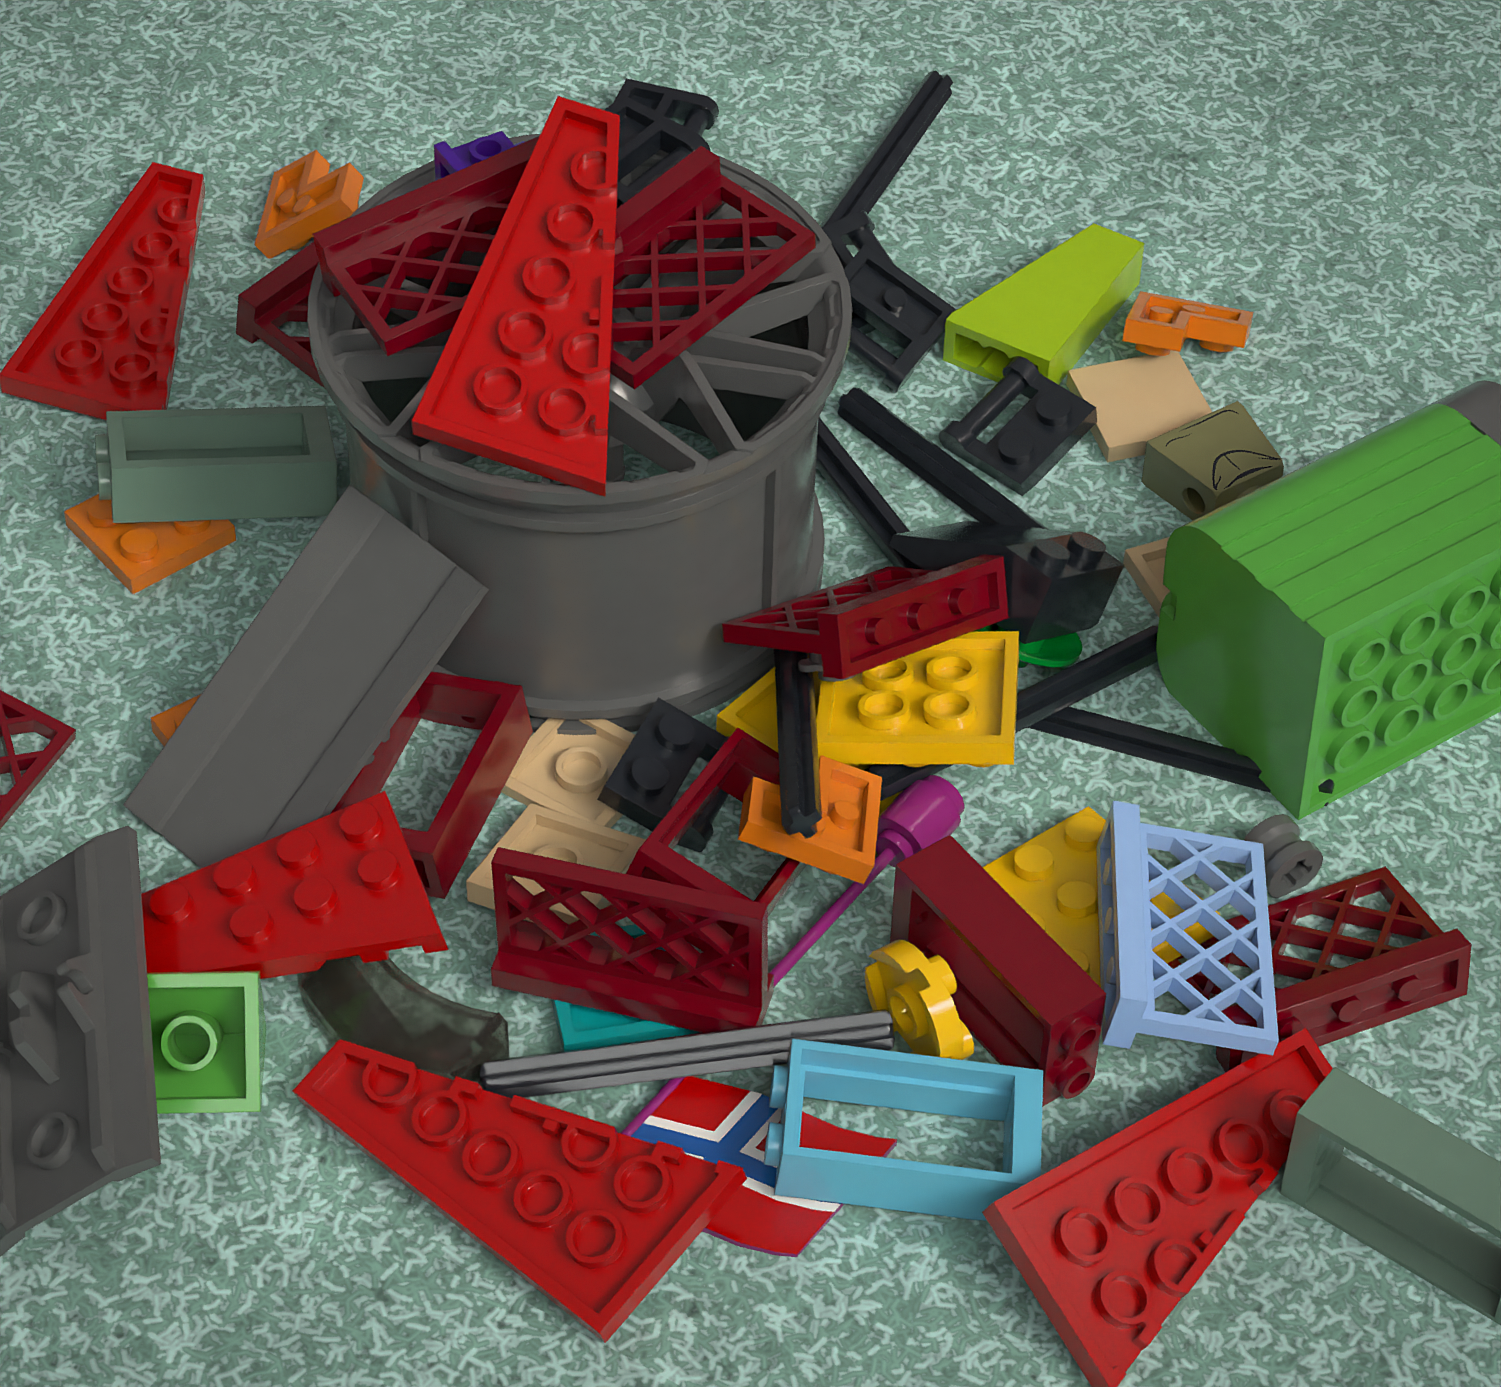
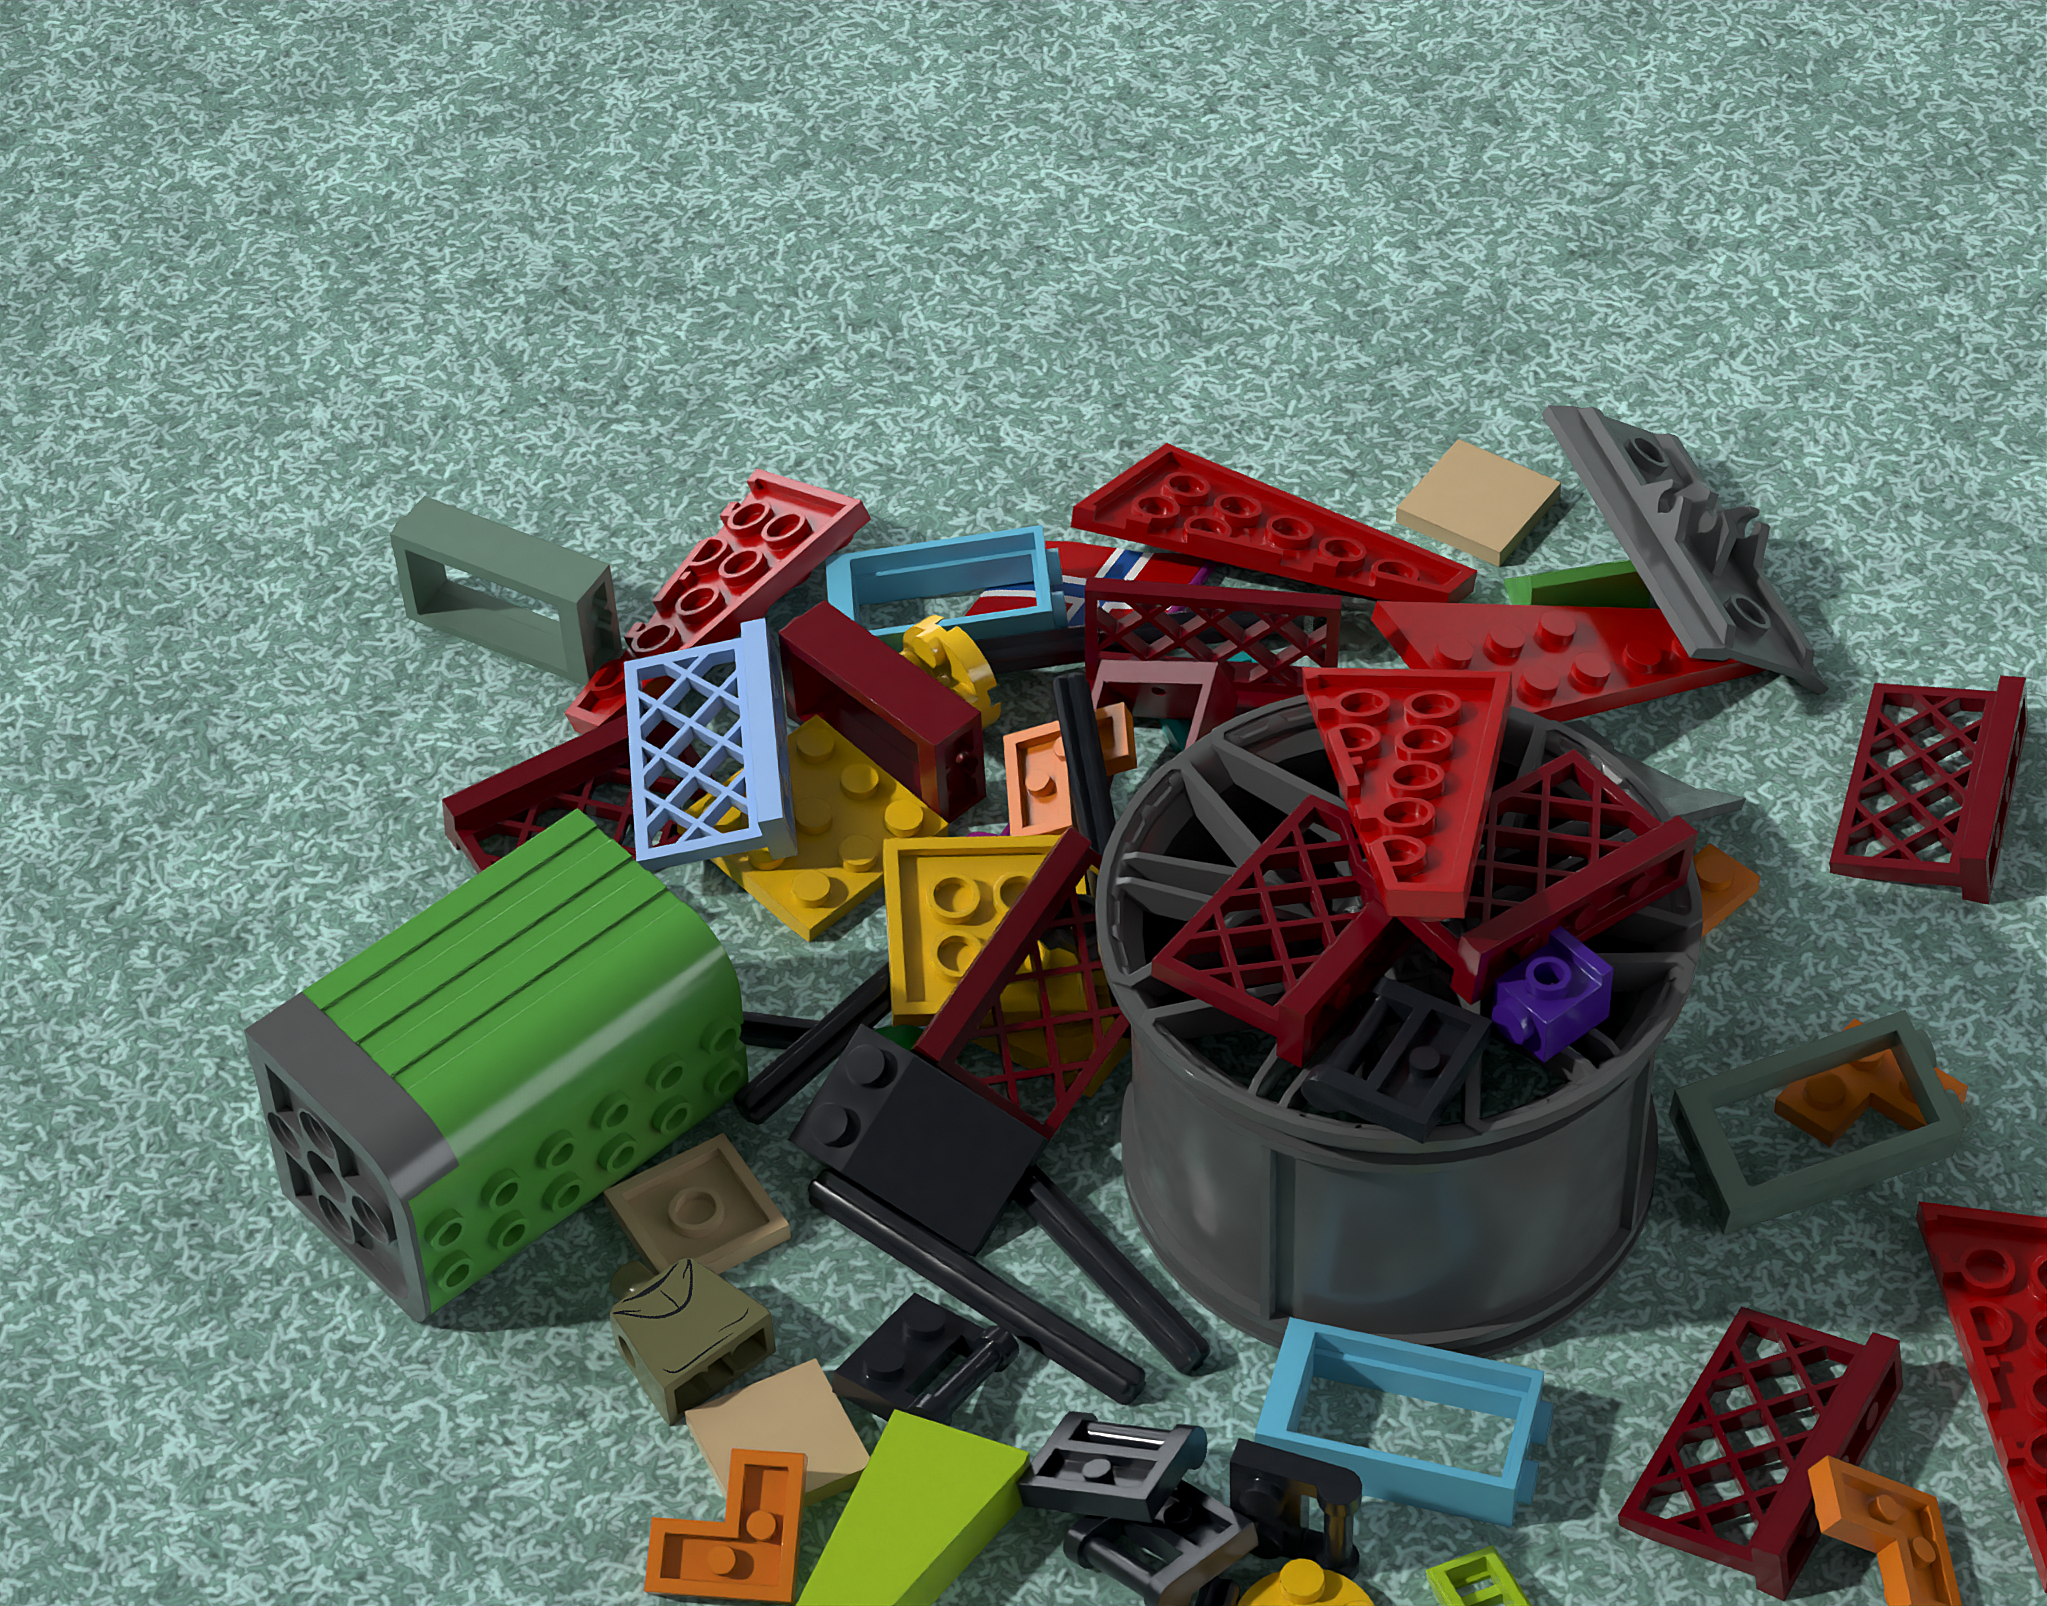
camera: 175 degrees right, 0 degrees up
(250, 1211) = (1478, 502): none -> tan tile

